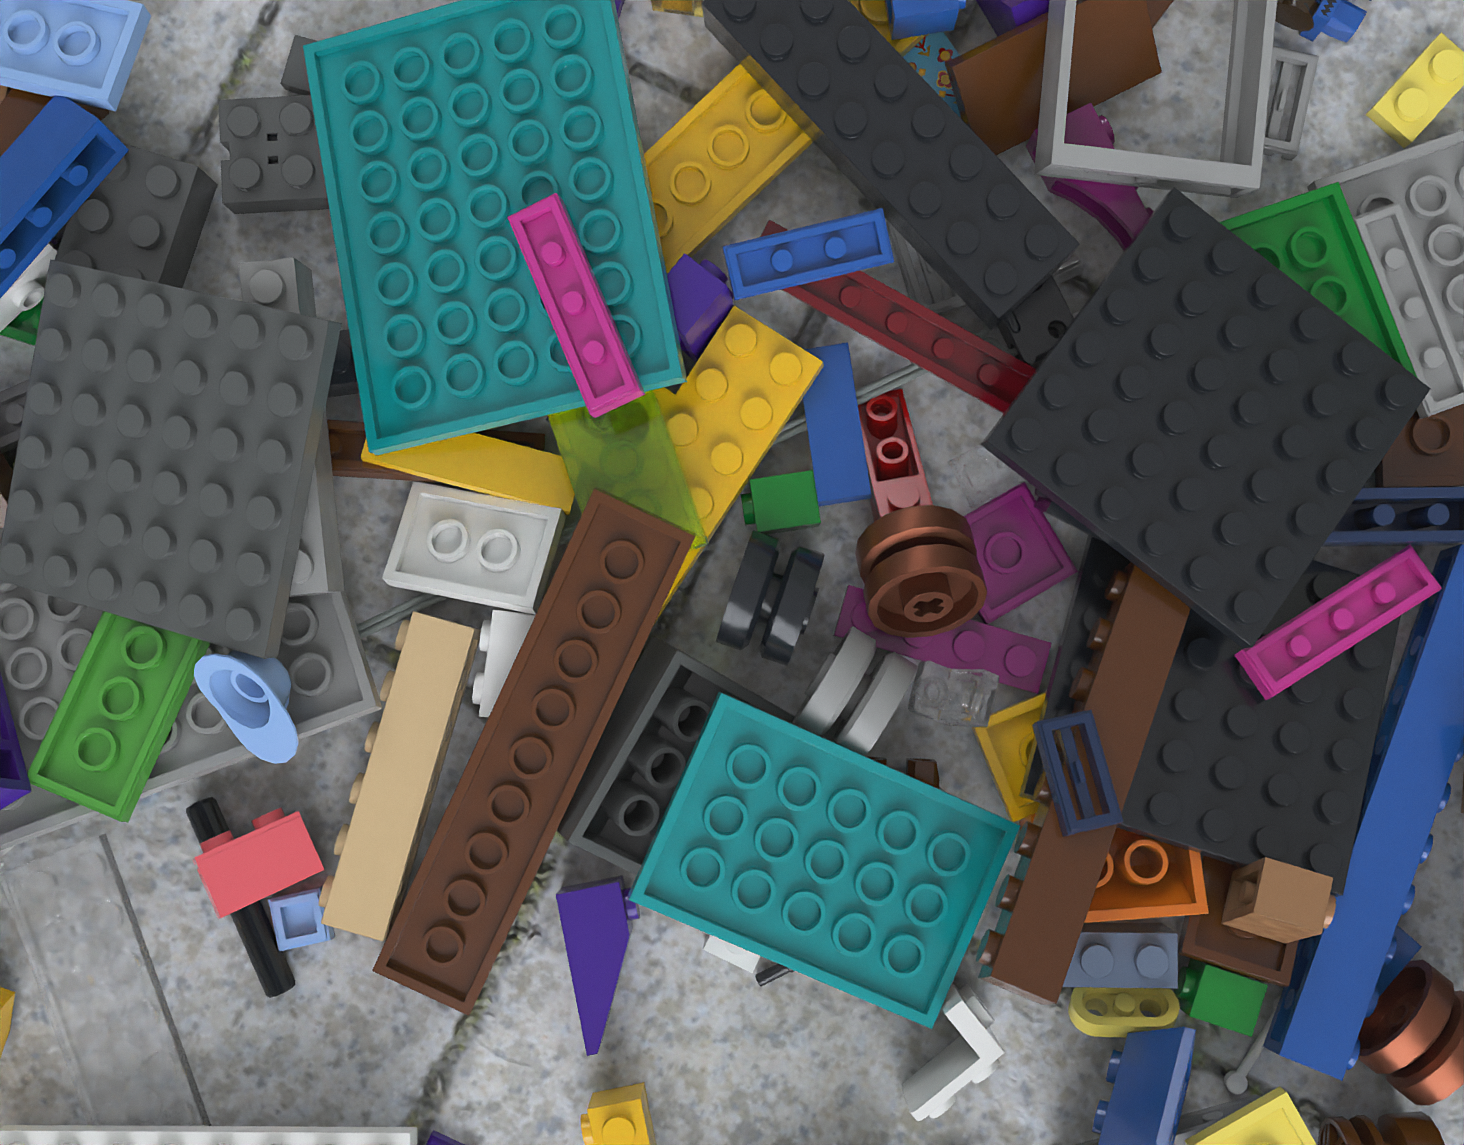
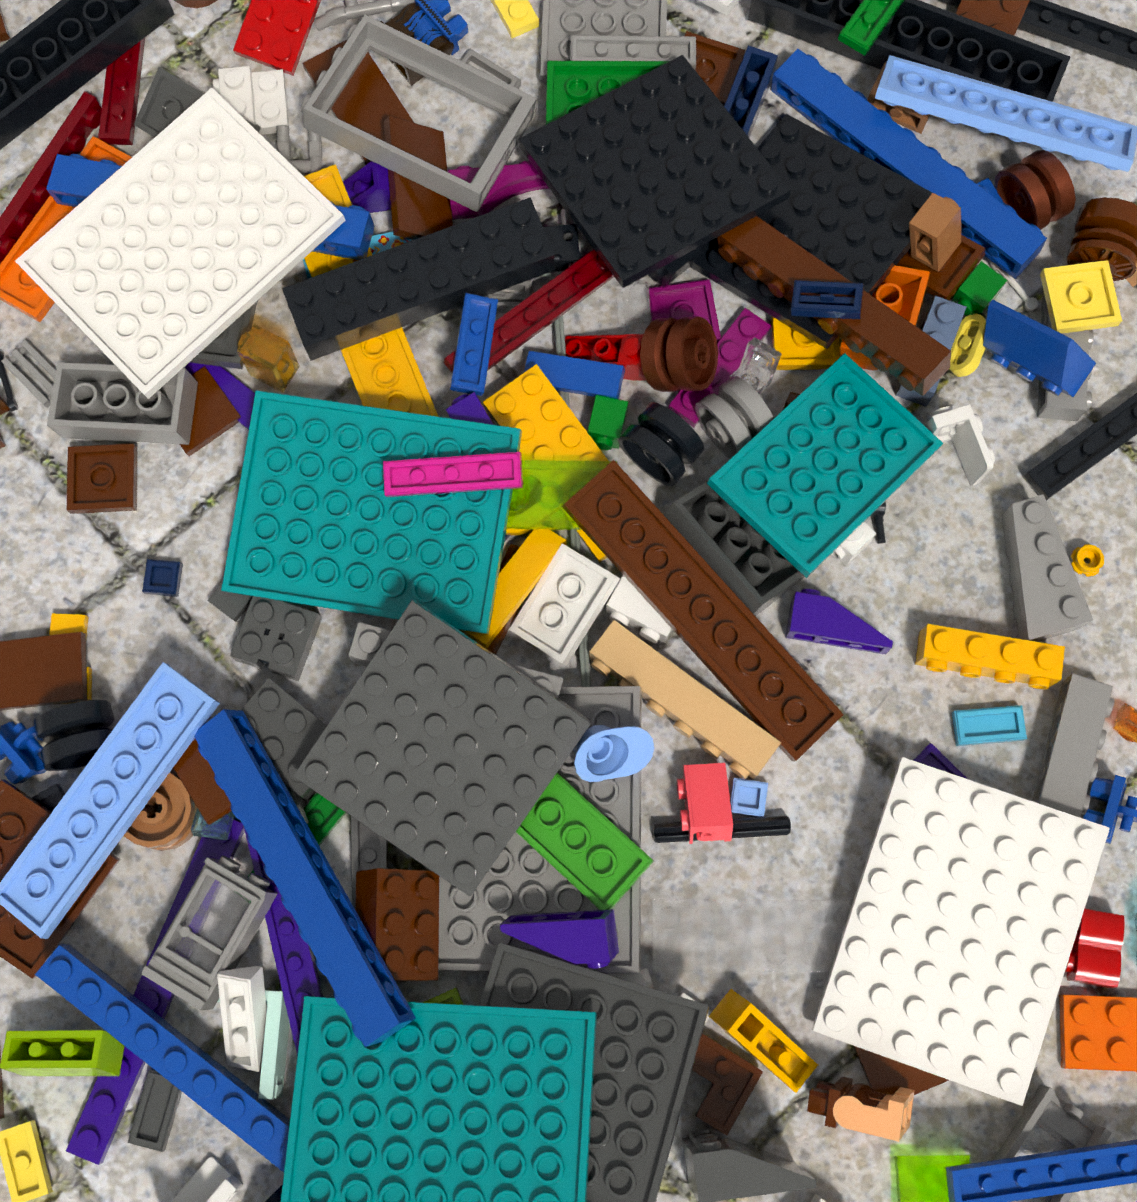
camera: 75 degrees left, 10 degrees down
(1338, 622) = (792, 150): dark pink tile -> none

